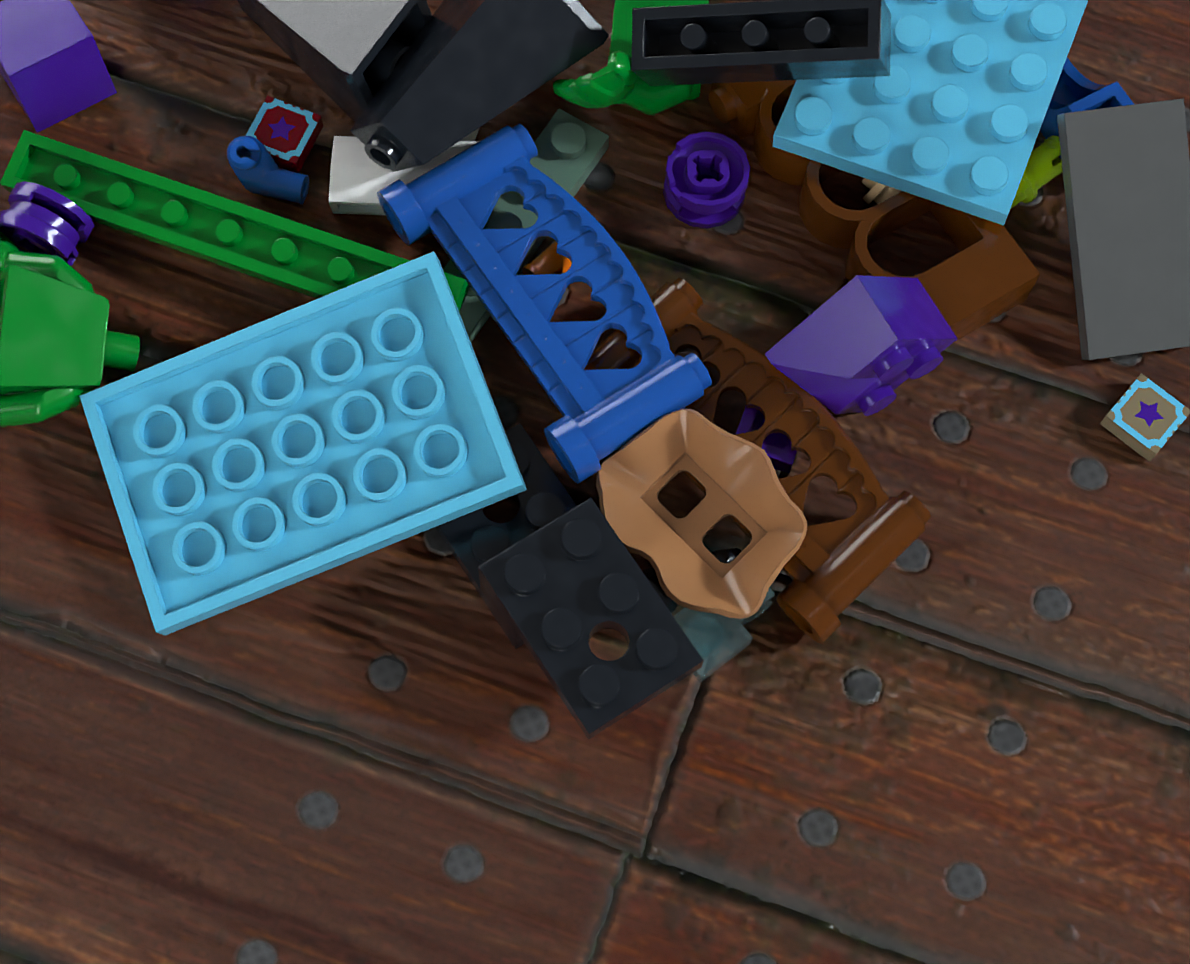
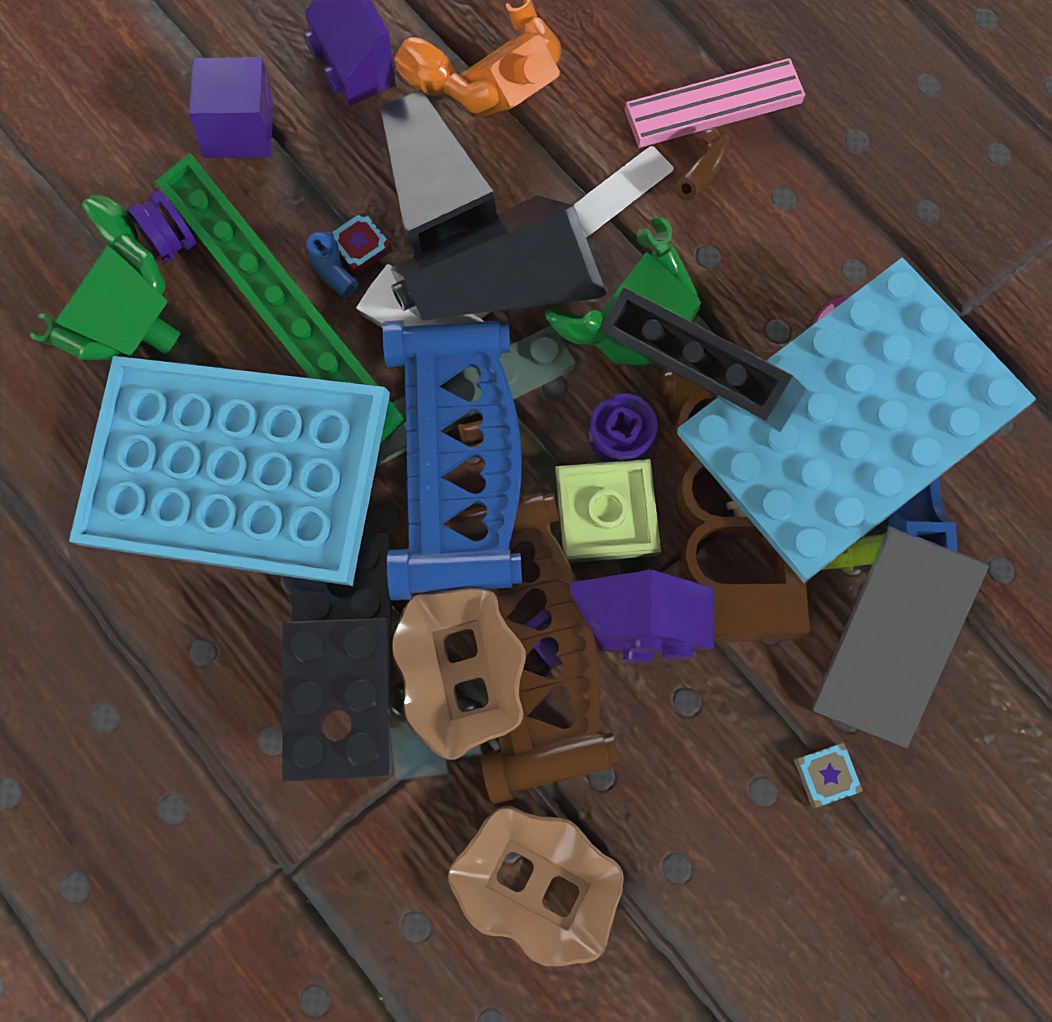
camera: 30 degrees right, 5 degrees up
(745, 270) = (607, 511): none -> yellowish green plate
(916, 655) = (555, 850): none -> medium nougat piece

